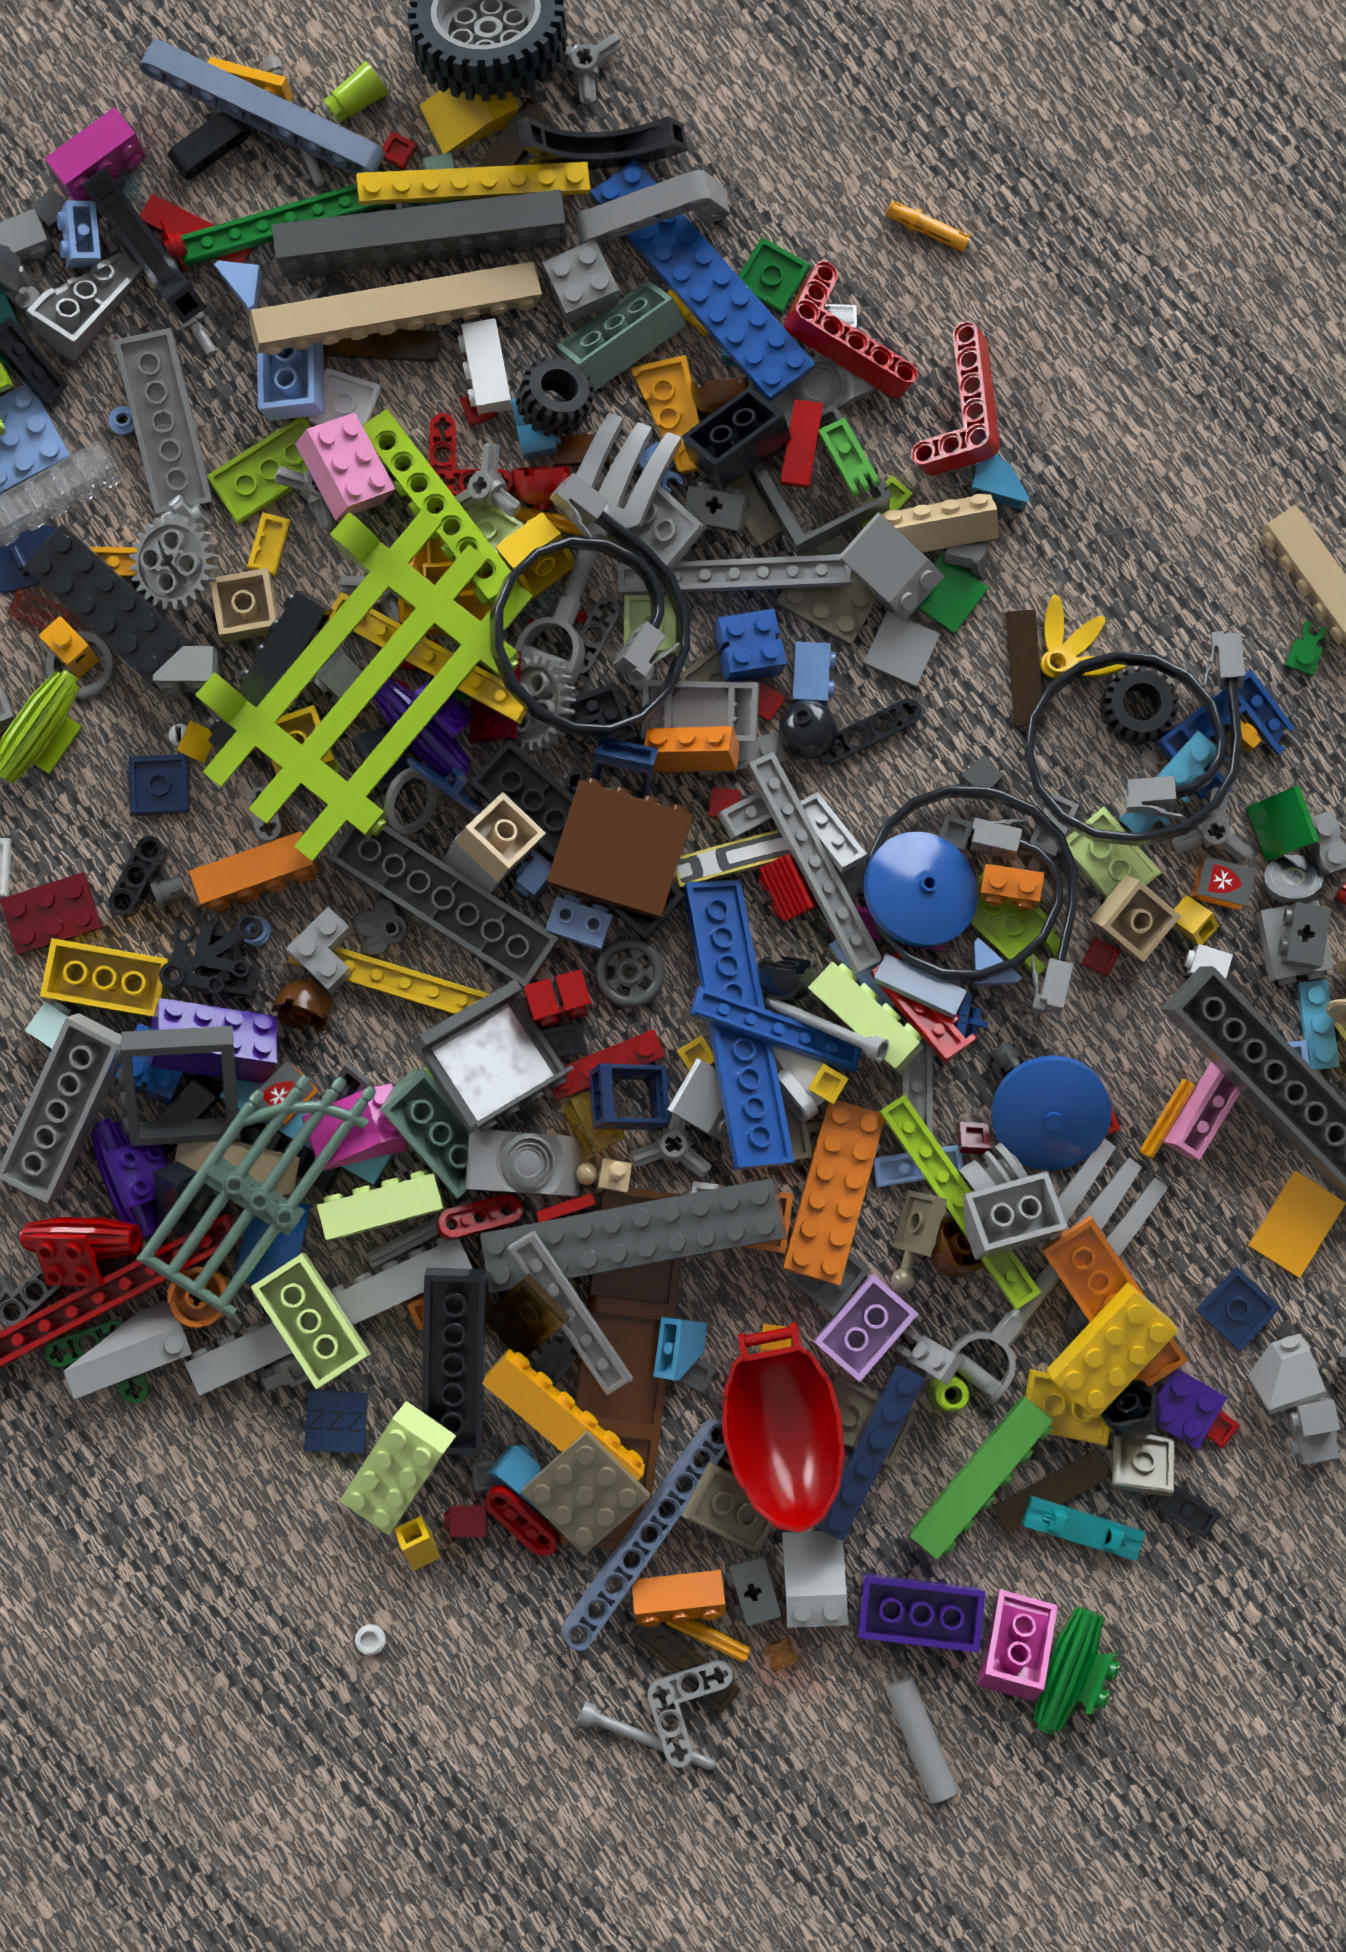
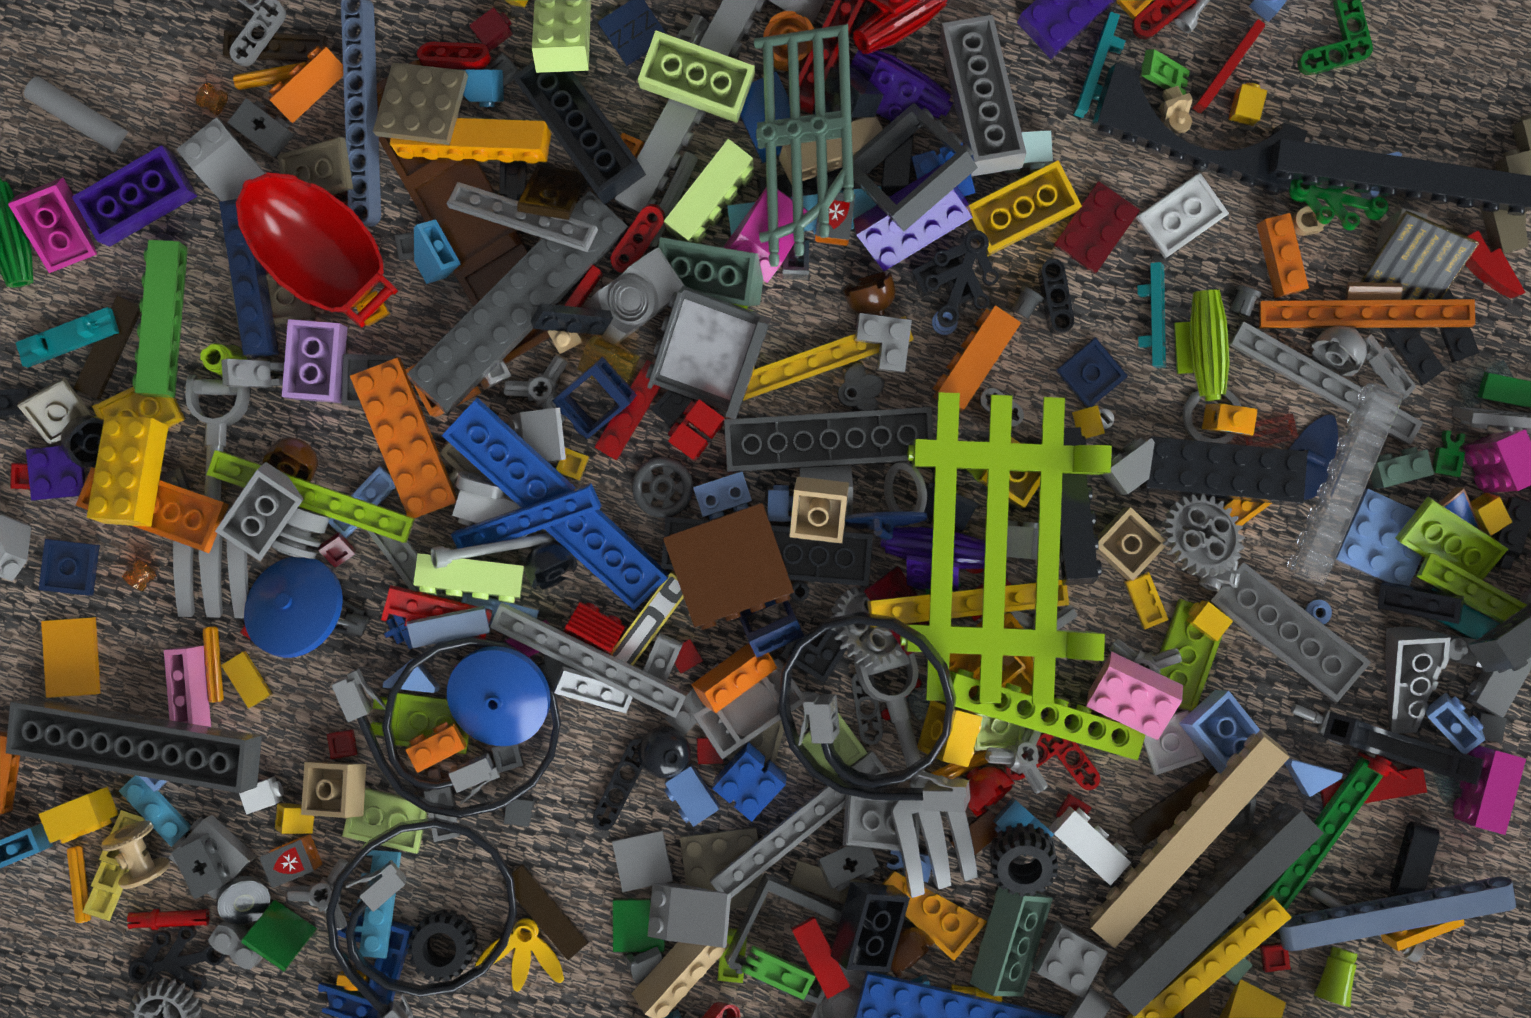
camera: 145 degrees right, 5 degrees up
(75, 769) = (1156, 291): none -> teal hinge
(226, 484) = (1208, 620): none -> yellow brick
(595, 1181) = (571, 319): none -> black plate
(828, 1084) = (461, 509): yellow plate -> none
(916, 1234) = (325, 447): dark tan plate -> none
(1146, 1081) = (246, 679): none -> yellow tile
(1176, 1251) = (139, 575): none -> clear orange wheel

